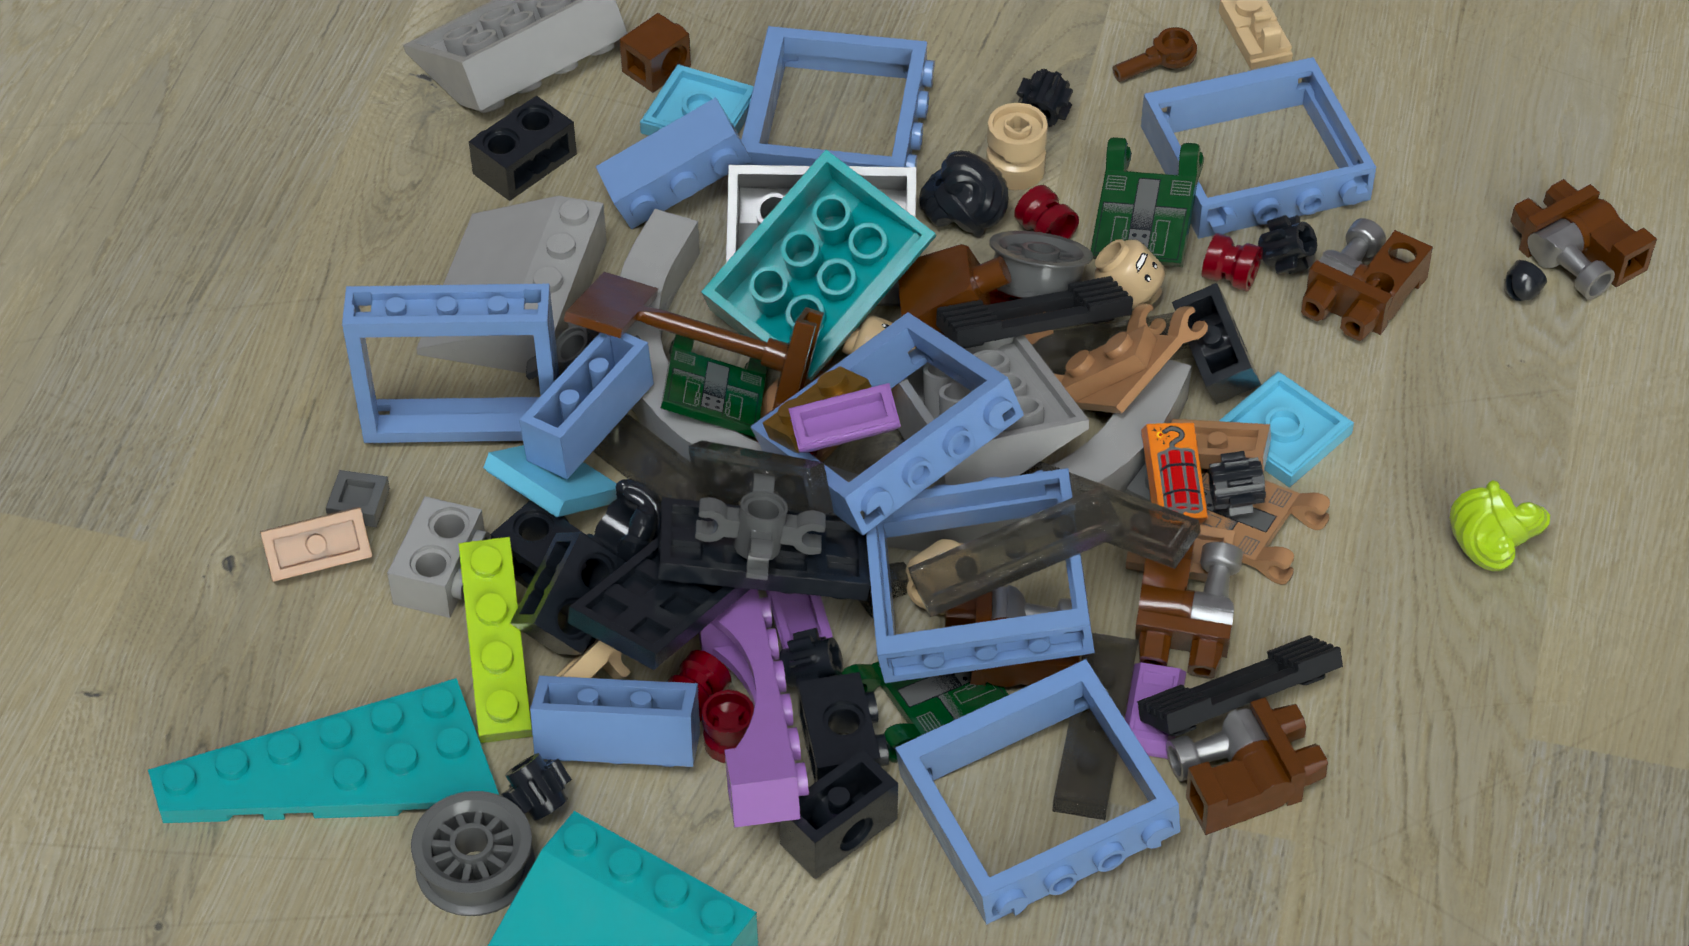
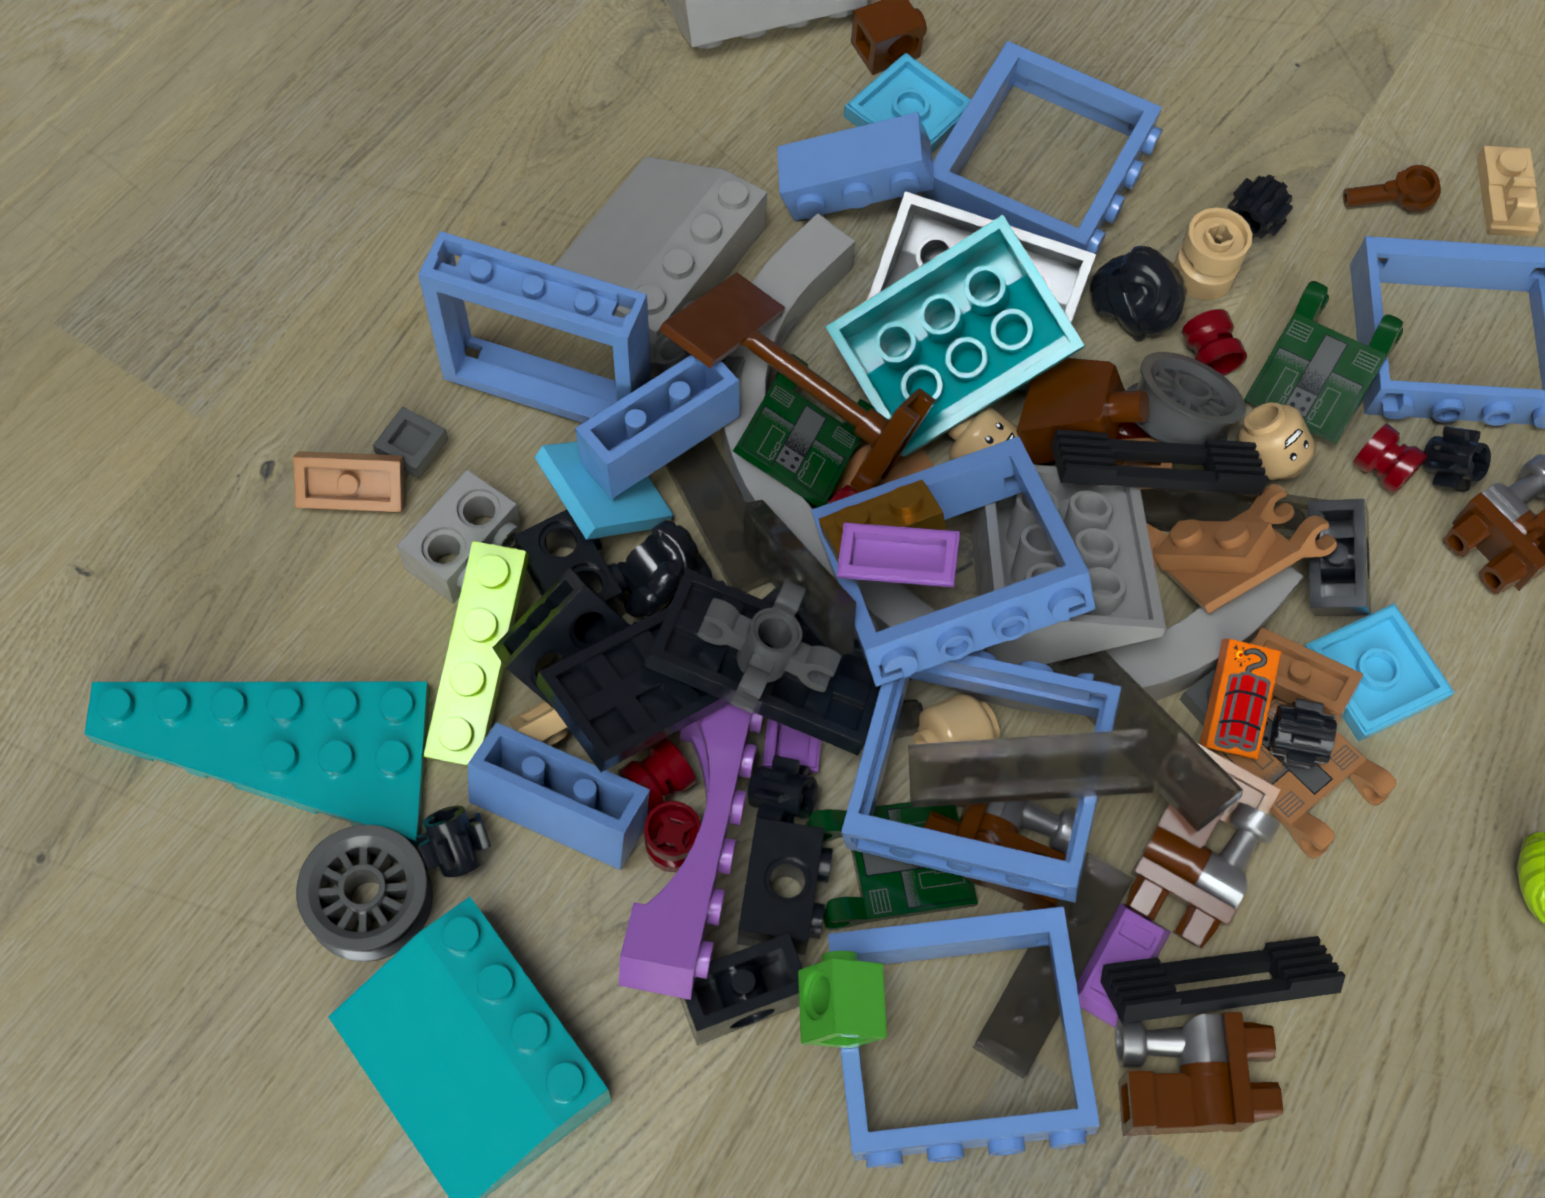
camera: 15 degrees right, 15 degrees up
(522, 147) = (718, 99): black brick -> none
(929, 779) = (842, 1001): none -> bright green brick

